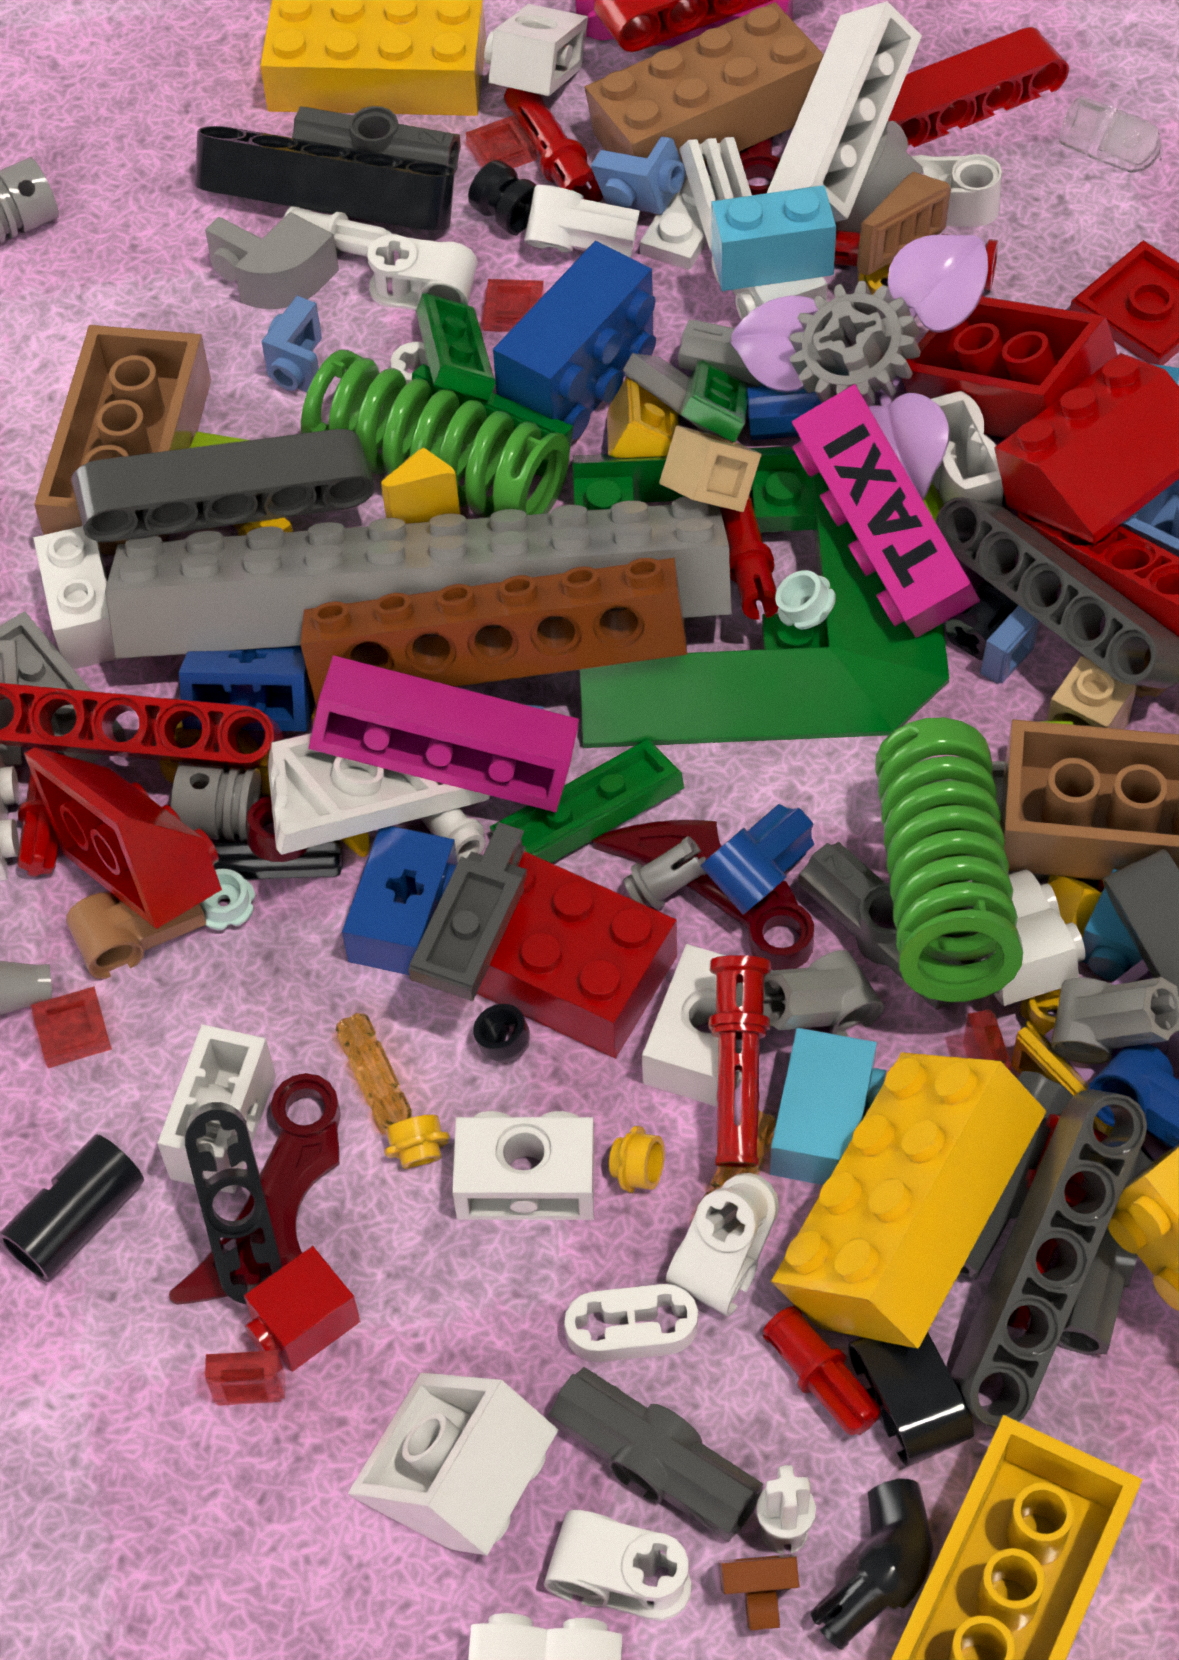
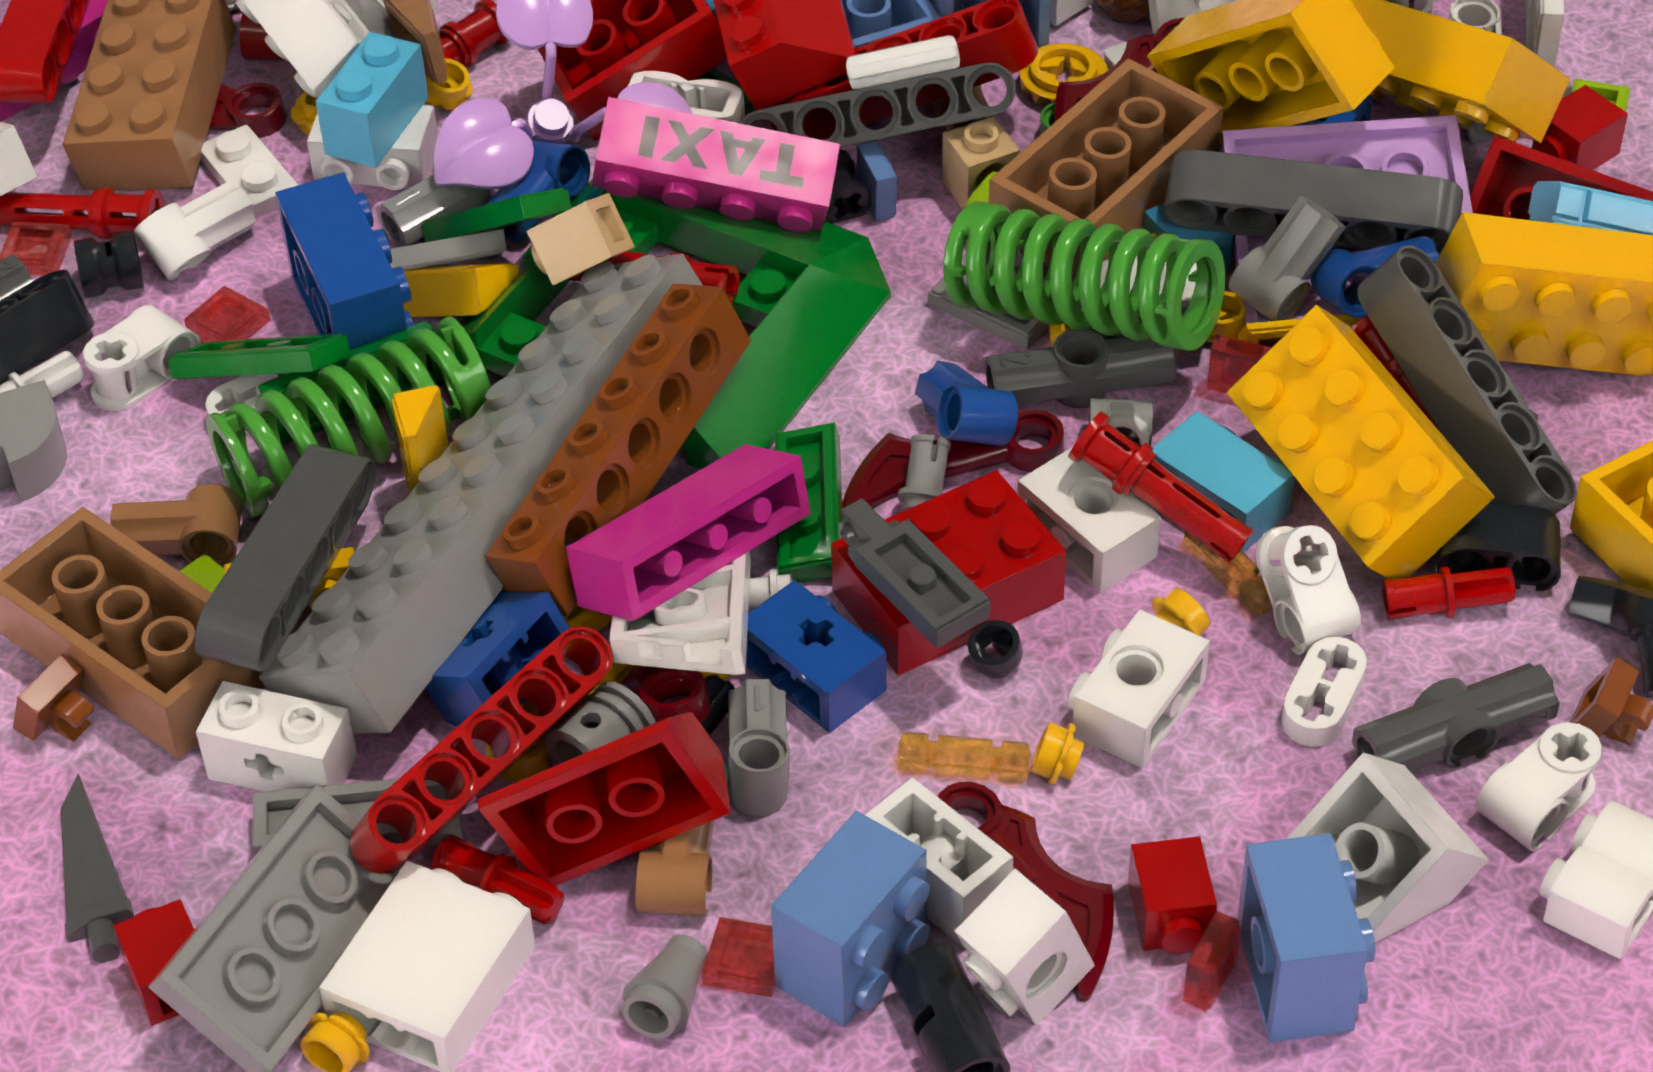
camera: 60 degrees left, 10 degrees down
(33, 437) = (54, 702): none -> dark orange tile
(103, 1073) = (850, 919): none -> medium blue brick
(140, 1218) = (1023, 949): none -> white brick
(201, 1159) = (1095, 898): black beam -> none
(258, 399) = (189, 527): none -> medium nougat piece
(282, 912) = (757, 748): none -> light grey piece
(284, 1433) = (1303, 937): none -> medium blue brick
(291, 345) = (130, 481): medium blue bracket -> none
(640, 181) = (193, 166): medium blue bracket -> none
(725, 170) = (257, 127): white tile -> none
(786, 1511) = (1571, 645): white axle -> none
(804, 599) = (751, 239): light aqua plate -> none
(857, 338) = (533, 81): light grey gear -> none
(1109, 571) = (903, 62): none -> white axle

